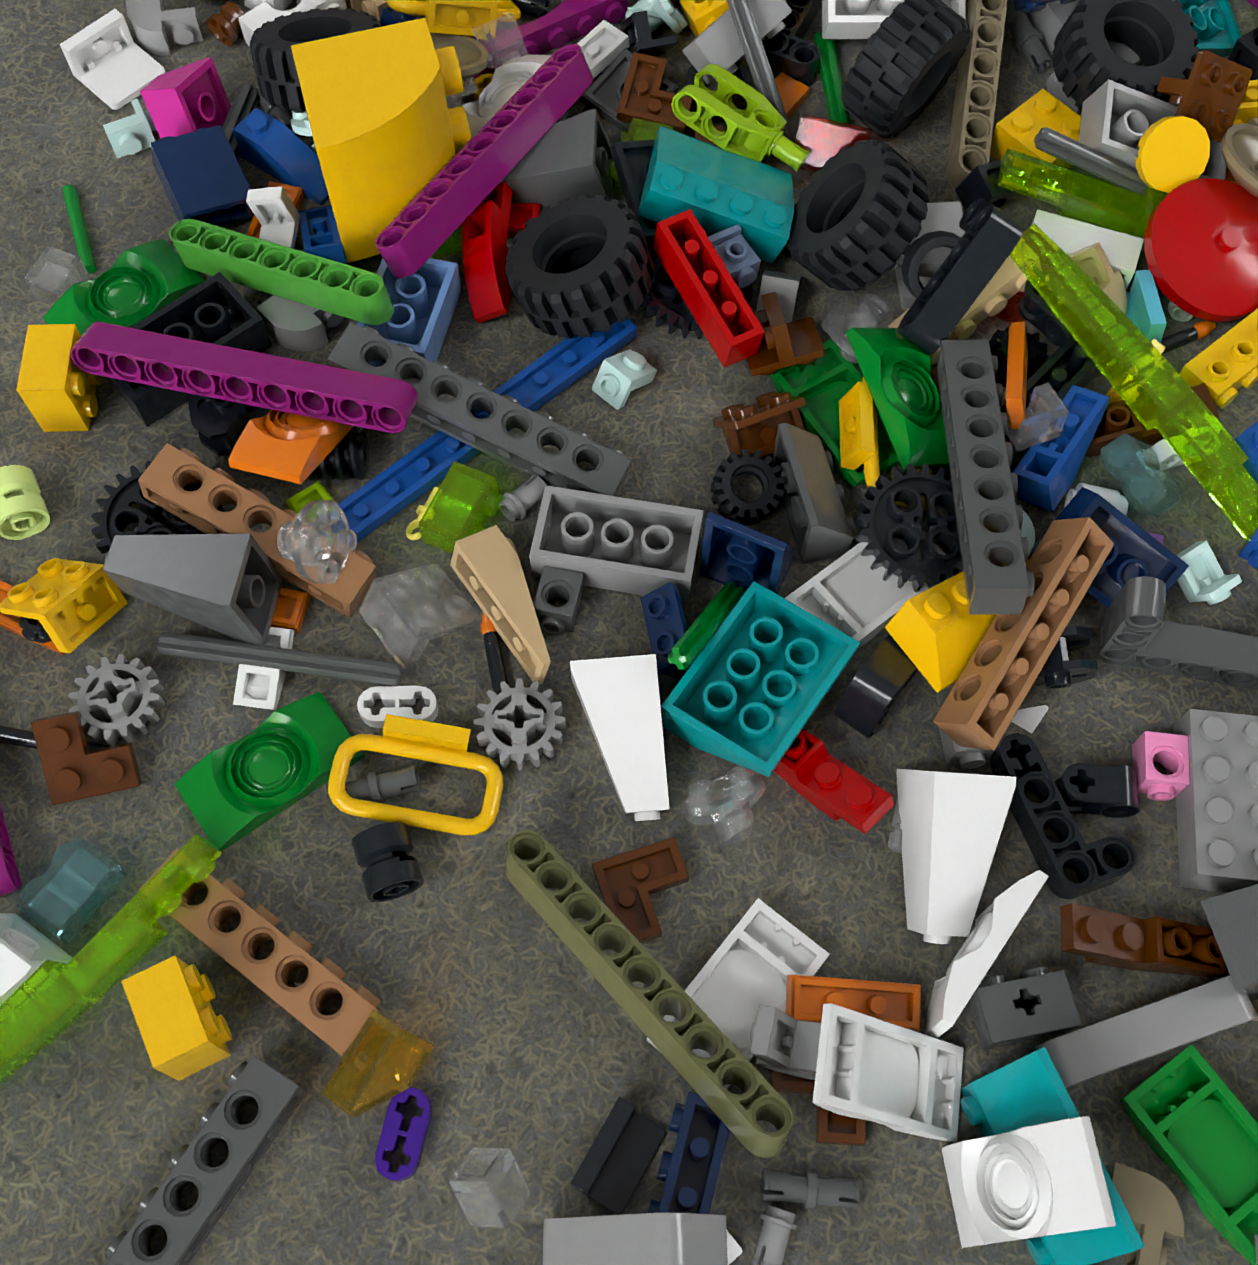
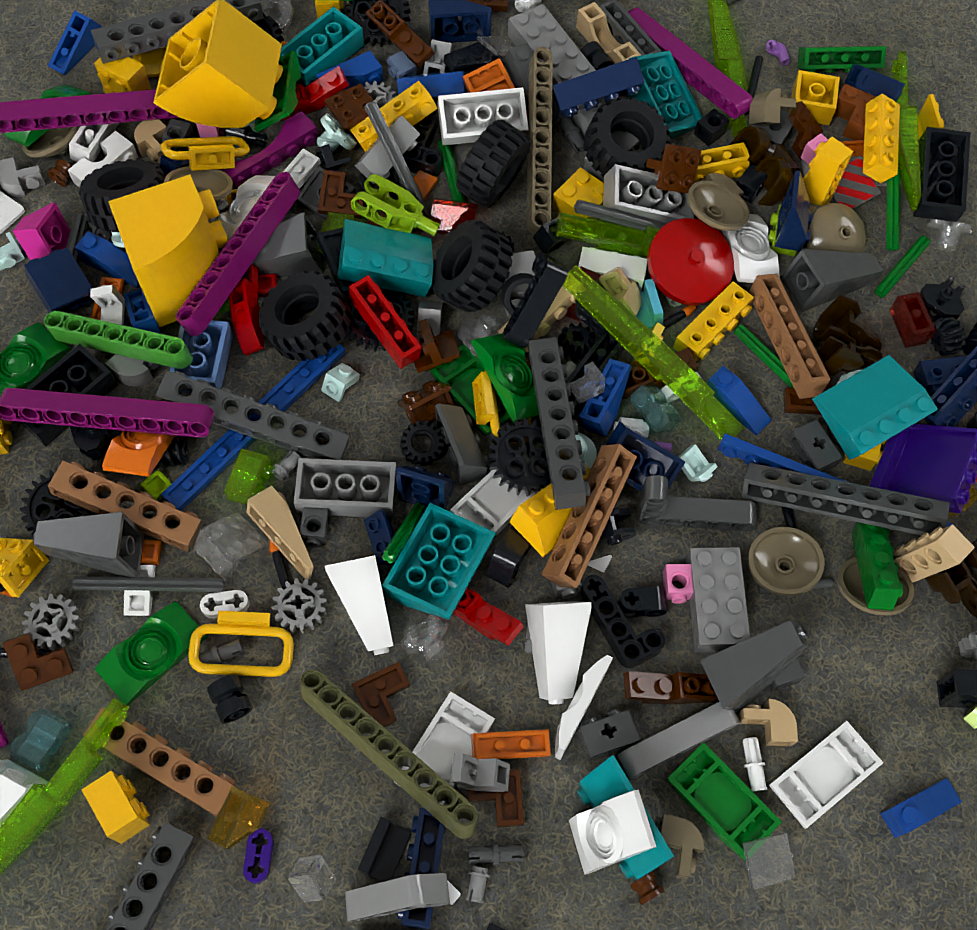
camera: 10 degrees left, 0 degrees up
(318, 541) = (164, 511): clear plate -> none
(421, 509) = (224, 480): light yellow hand -> none
(501, 40) = (239, 171): clear panel -> none
(737, 255) = (400, 299): sand blue brick -> none
(888, 1074) = (532, 782): white slope -> none
(1016, 374) = (575, 356): orange tile -> none
(1172, 153) = (658, 206): yellow tile -> none

